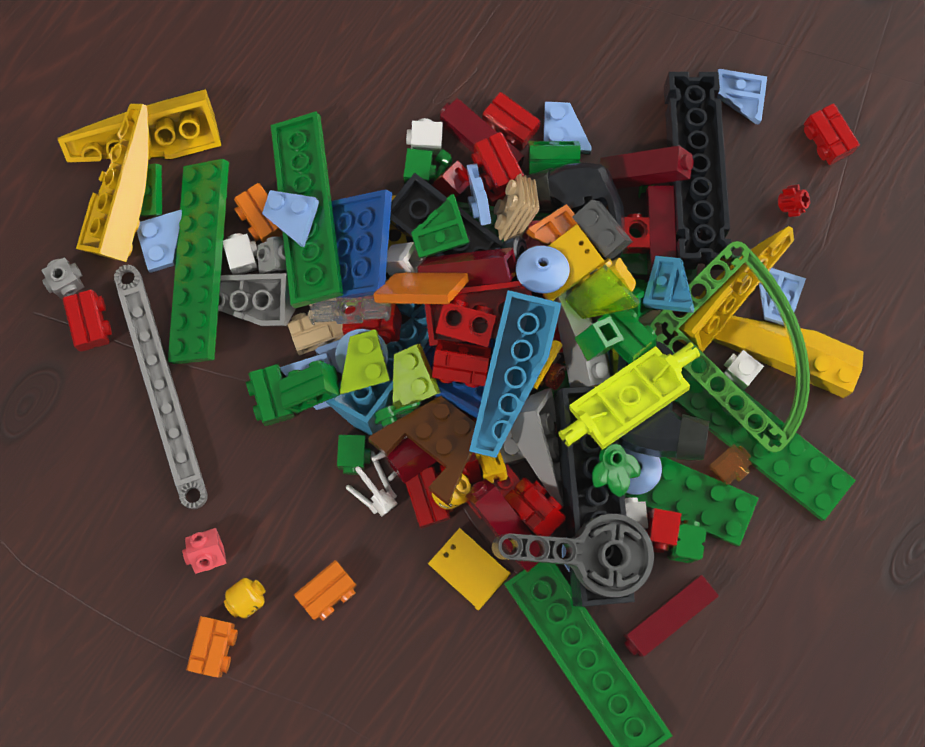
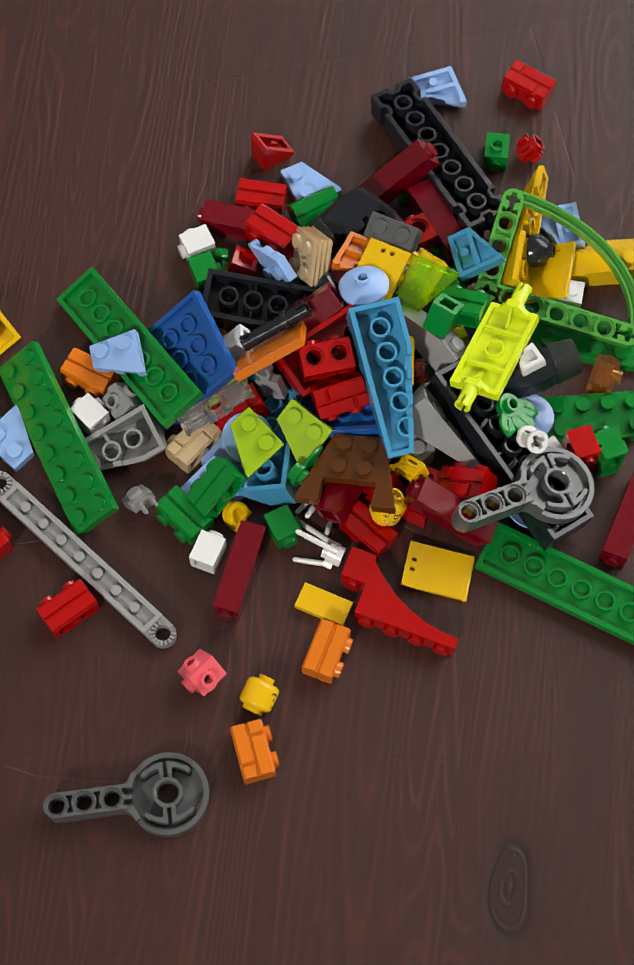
camera: 25 degrees left, 10 degrees down
(94, 633) = (141, 798): none -> dark grey beam
(123, 427) = (67, 608): none -> red brick
(239, 359) = (139, 499): none -> light grey plate
(273, 440) = (208, 551): none -> white brick
(290, 473) = (239, 571): none -> dark red brick
(317, 418) = (234, 513): none -> yellow tile
(349, 544) = (323, 604): none -> yellow tile
(397, 576) = (383, 608): none -> red arch
(414, 316) = (270, 384): none -> light grey plate
(441, 230) = (258, 301): green wing -> none
(446, 266) = (285, 321): none -> black pin
(547, 75) = (269, 149): none -> red slope
(618, 501) = (533, 438): none -> white bush
(657, 425) = (531, 360): none -> white tile
(737, 312) = (539, 250): none -> black brick
(738, 339) = (554, 276): none -> yellow container
(759, 187) = (496, 151): none -> green brick

